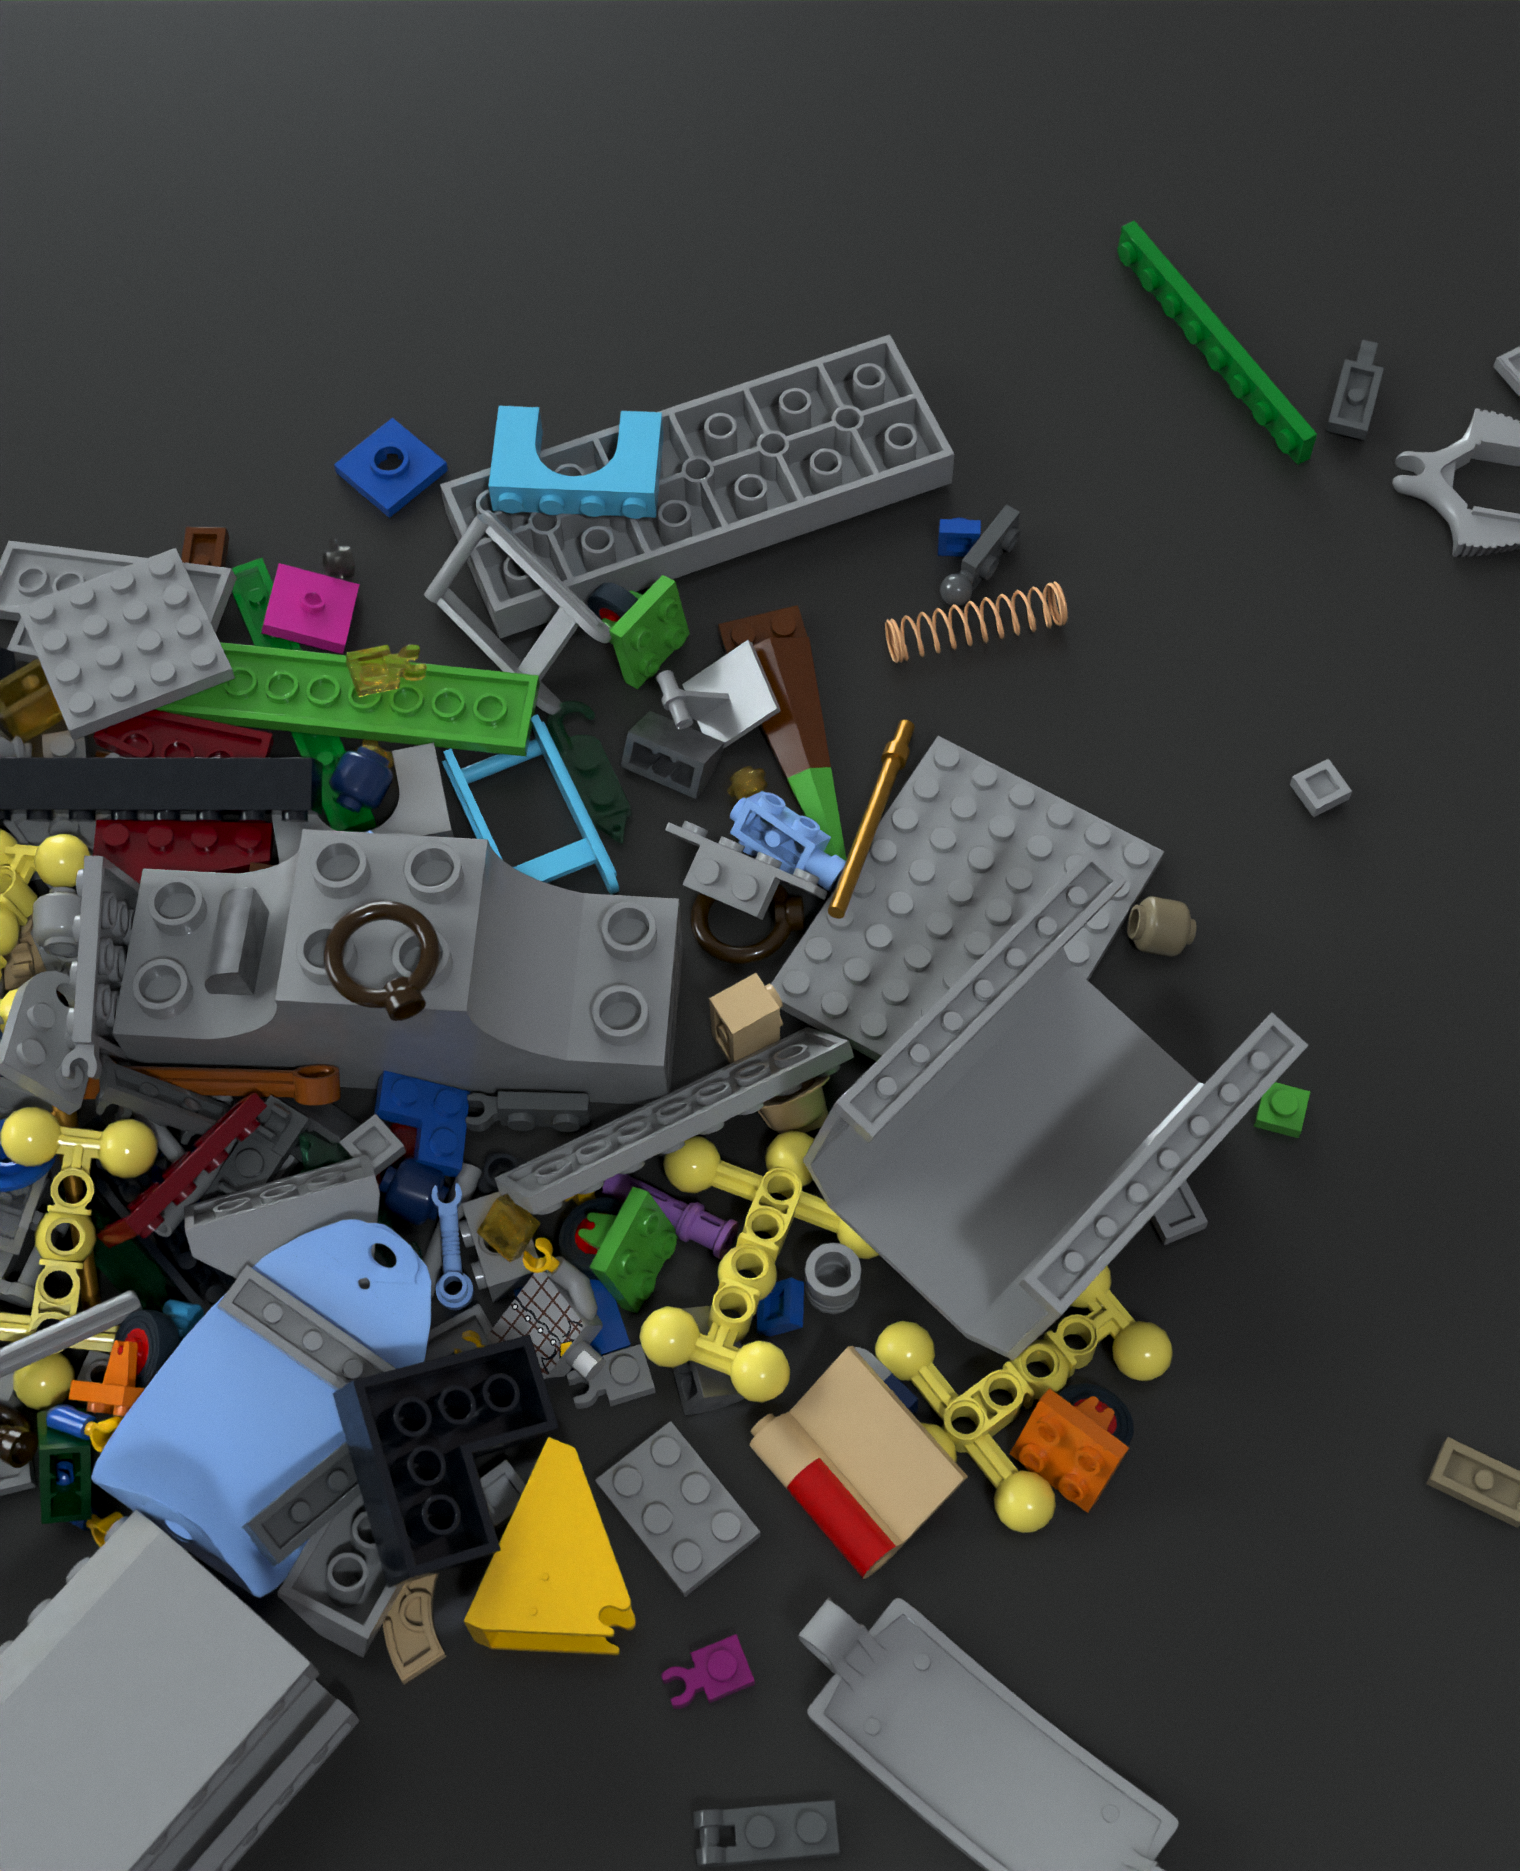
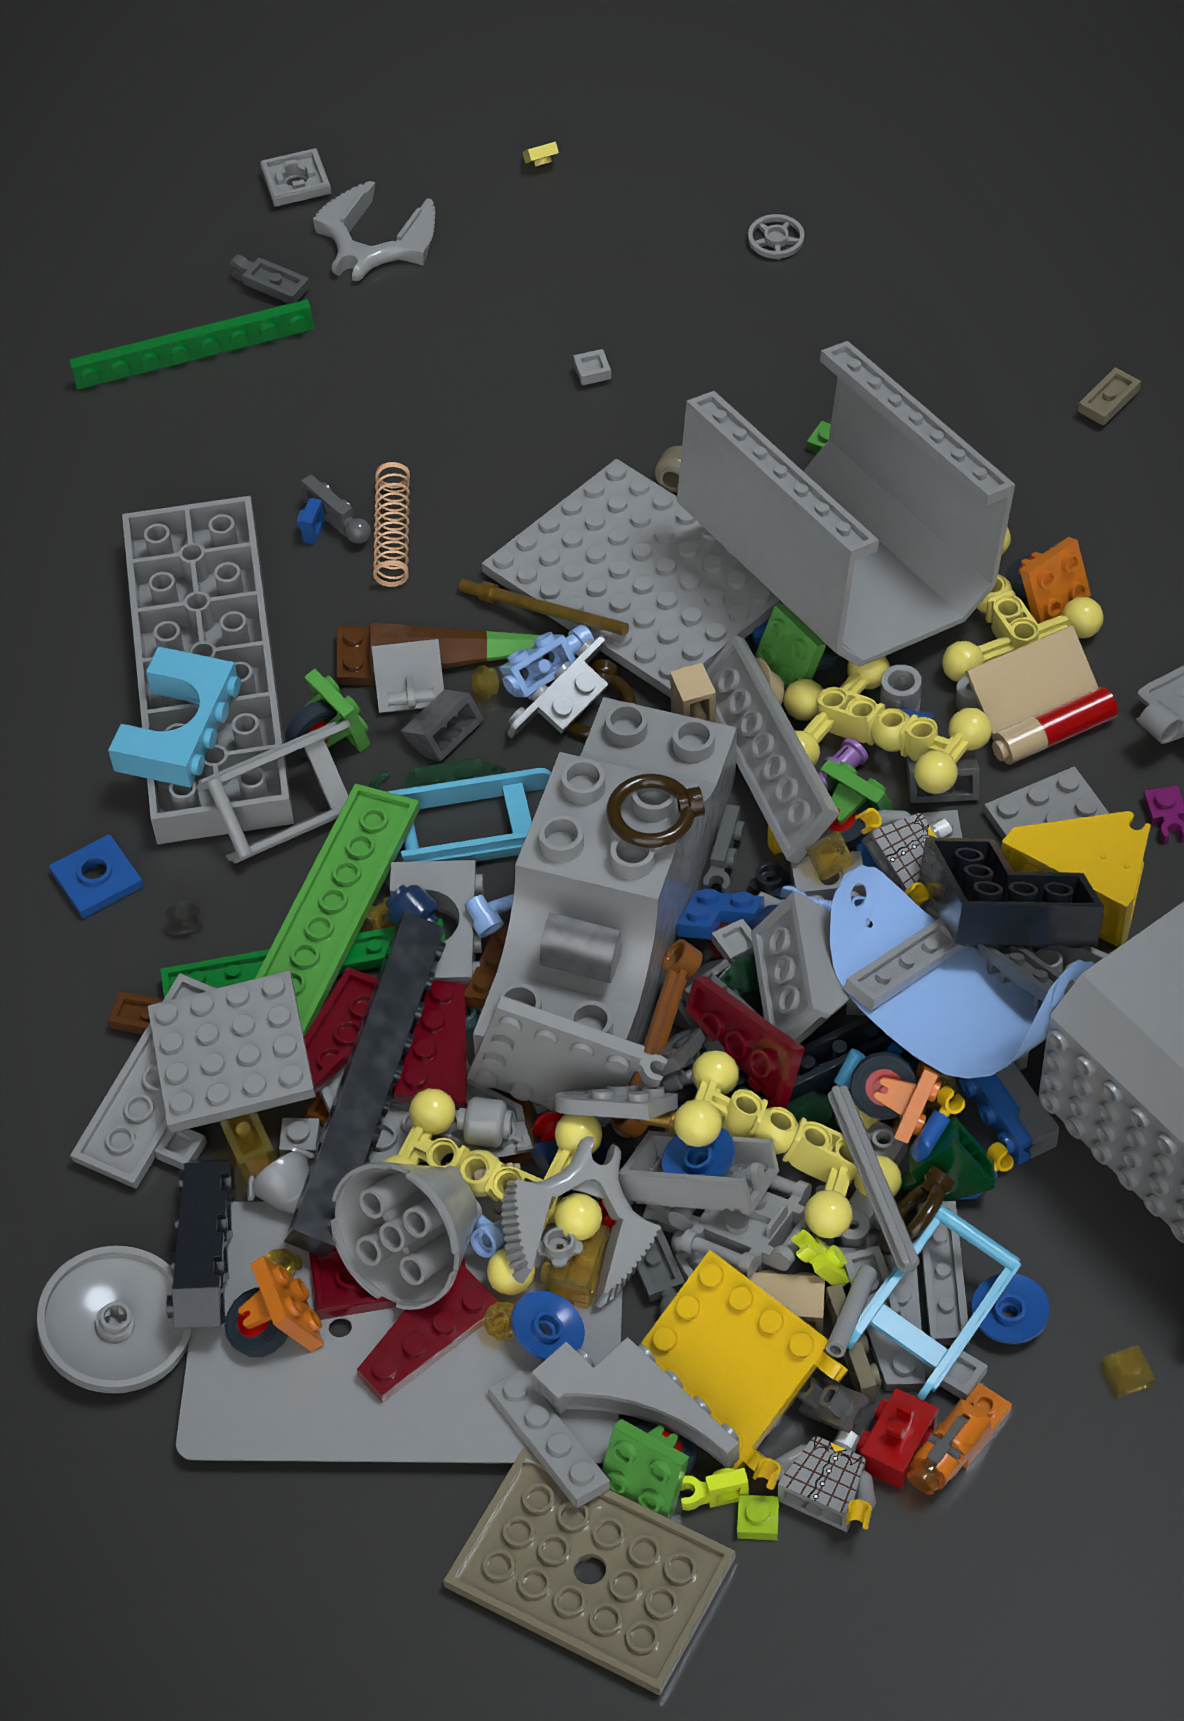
camera: 75 degrees left, 10 degrees down
(310, 608) = (225, 939): dark pink plate -> none
(380, 671) = (321, 875): clear yellow plate -> none

